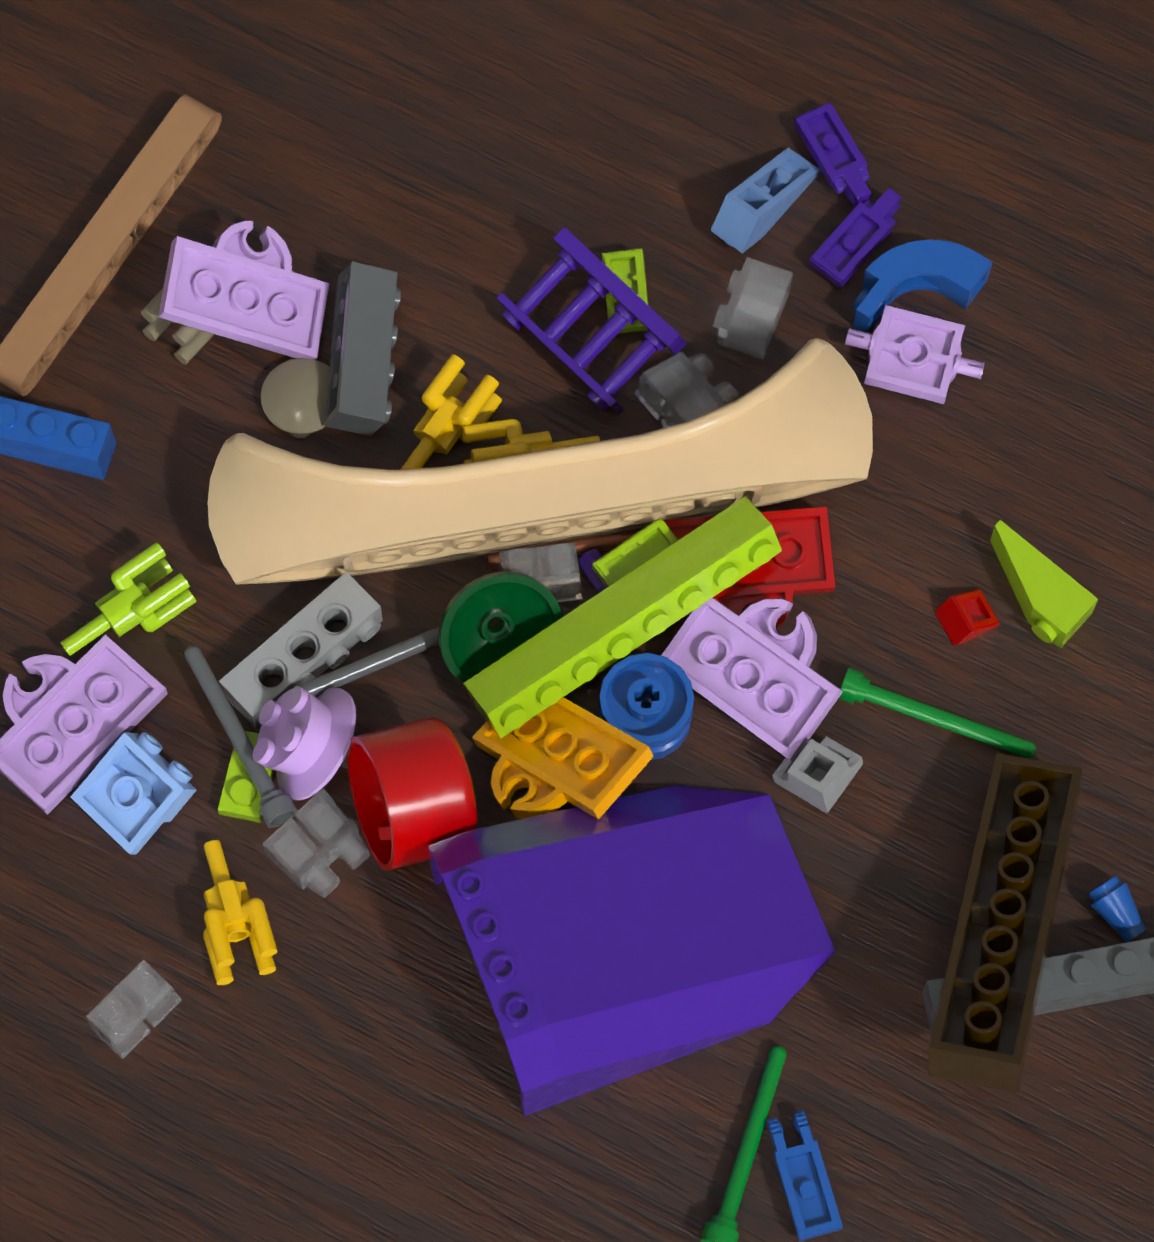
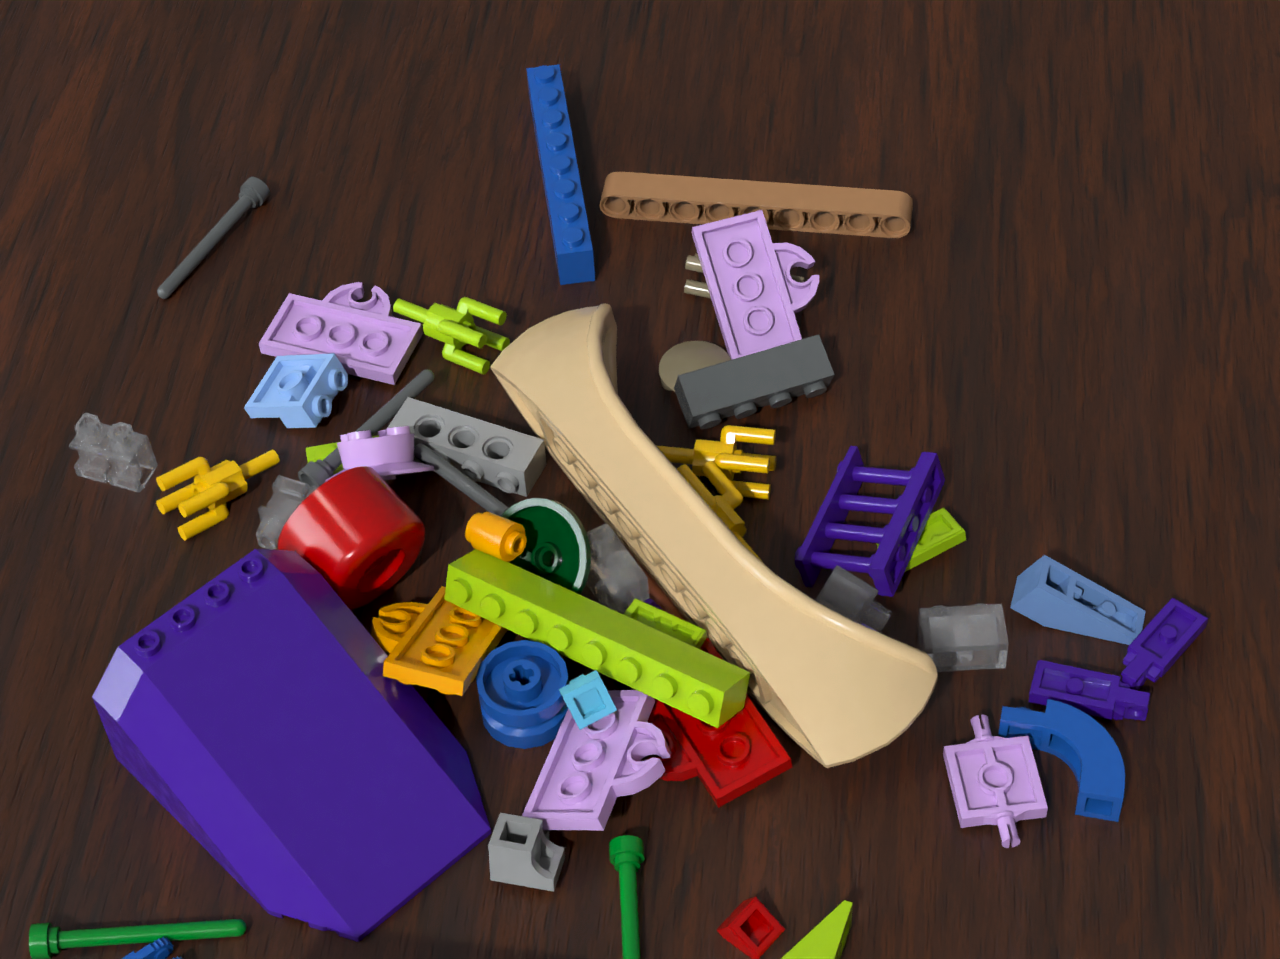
camera: 70 degrees right, 20 degrees down
(468, 657) = (496, 536): none -> light orange brick
(693, 650) = (587, 699): none -> medium azure tile

